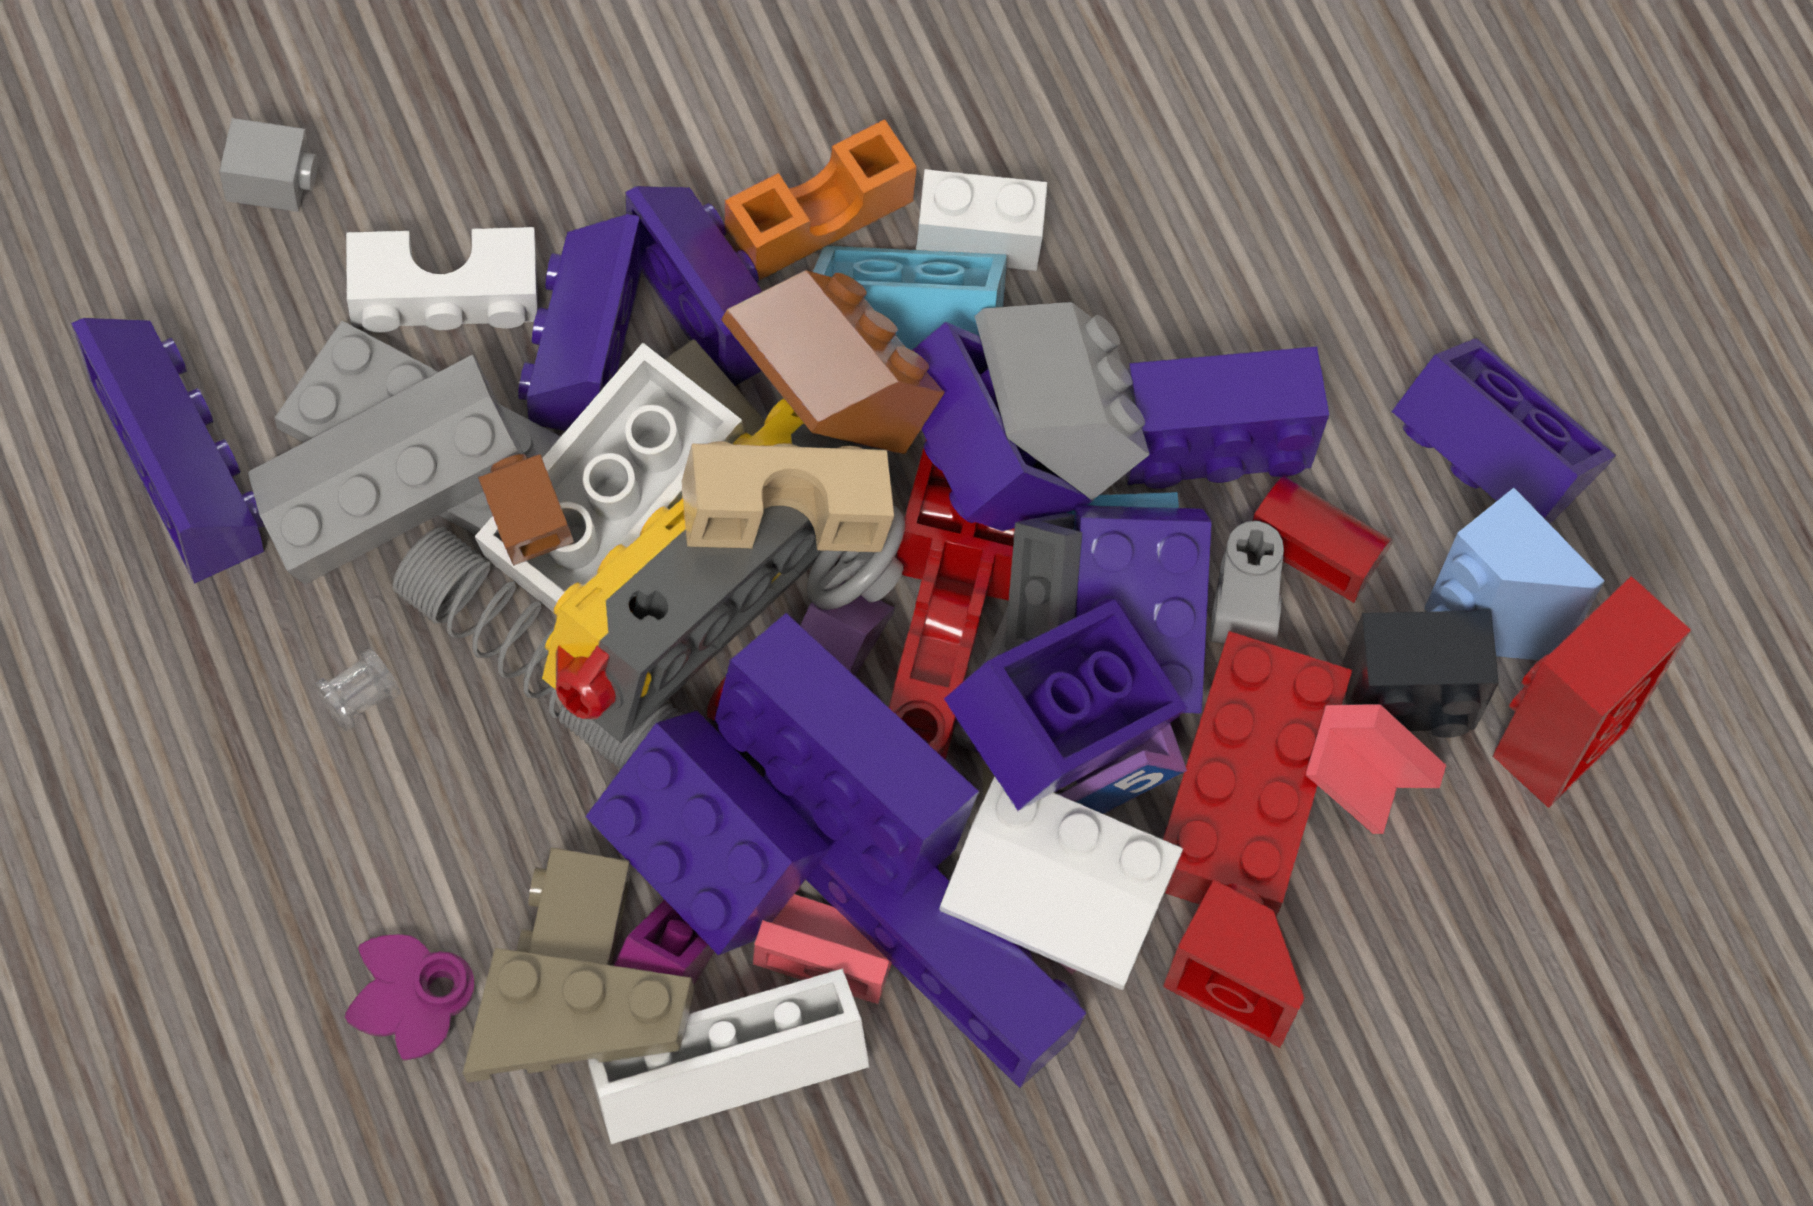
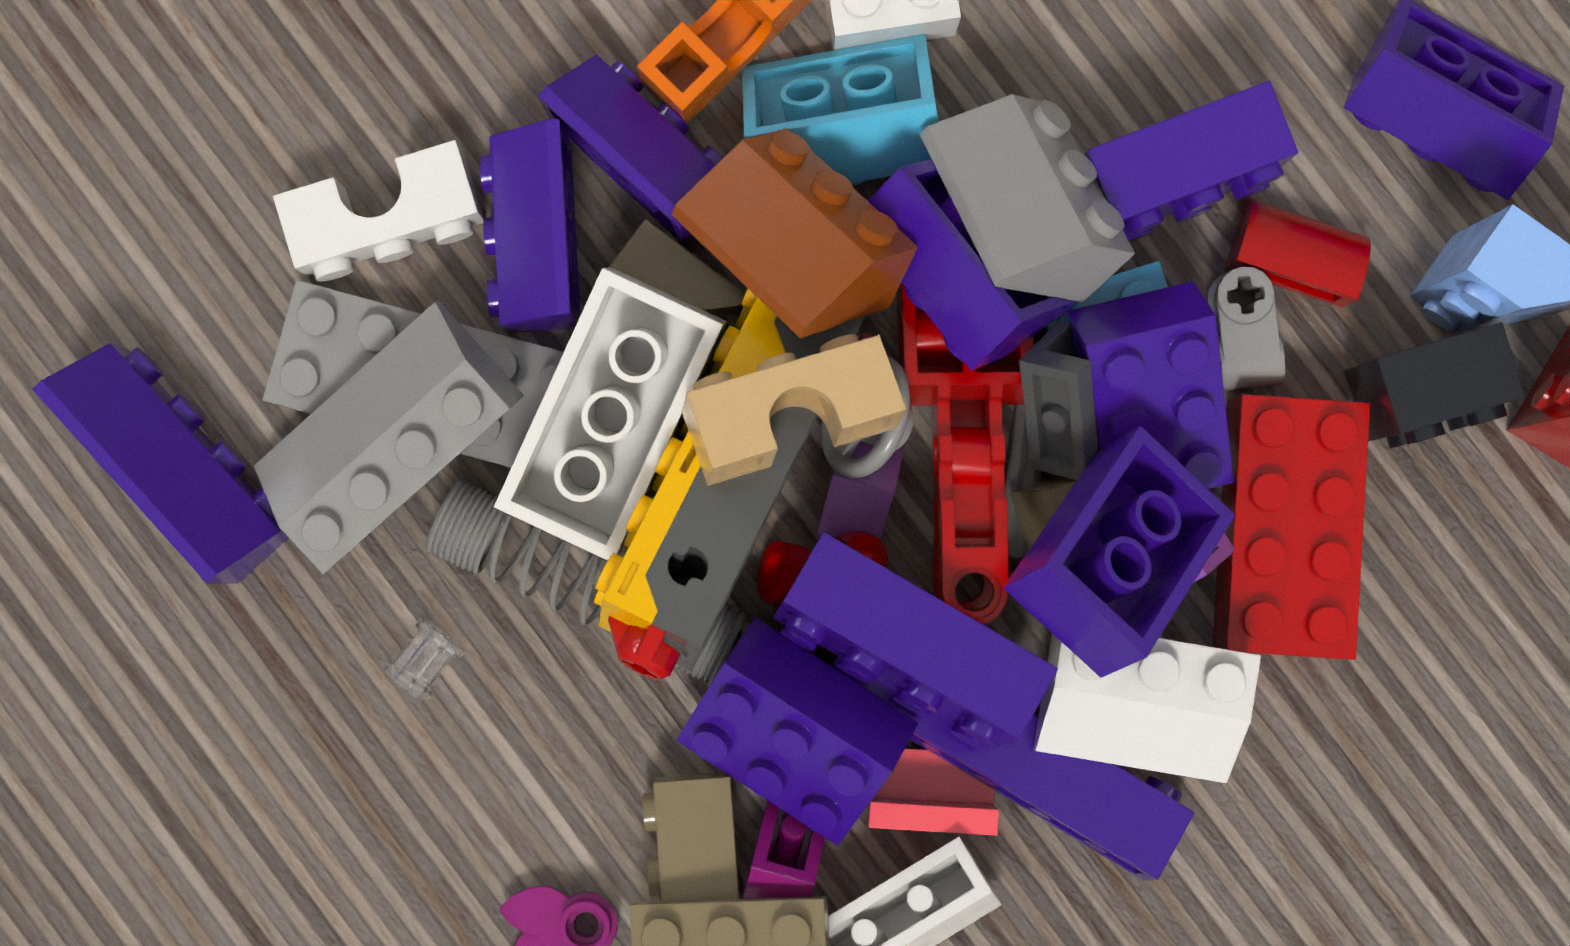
camera: 10 degrees left, 20 degrees up
(267, 165) = (172, 133): light grey brick -> none
(525, 507) = (535, 477): dark orange brick -> none
(1238, 964) = (1323, 722): red slope -> none
(1364, 759) = (1393, 491): coral panel -> none

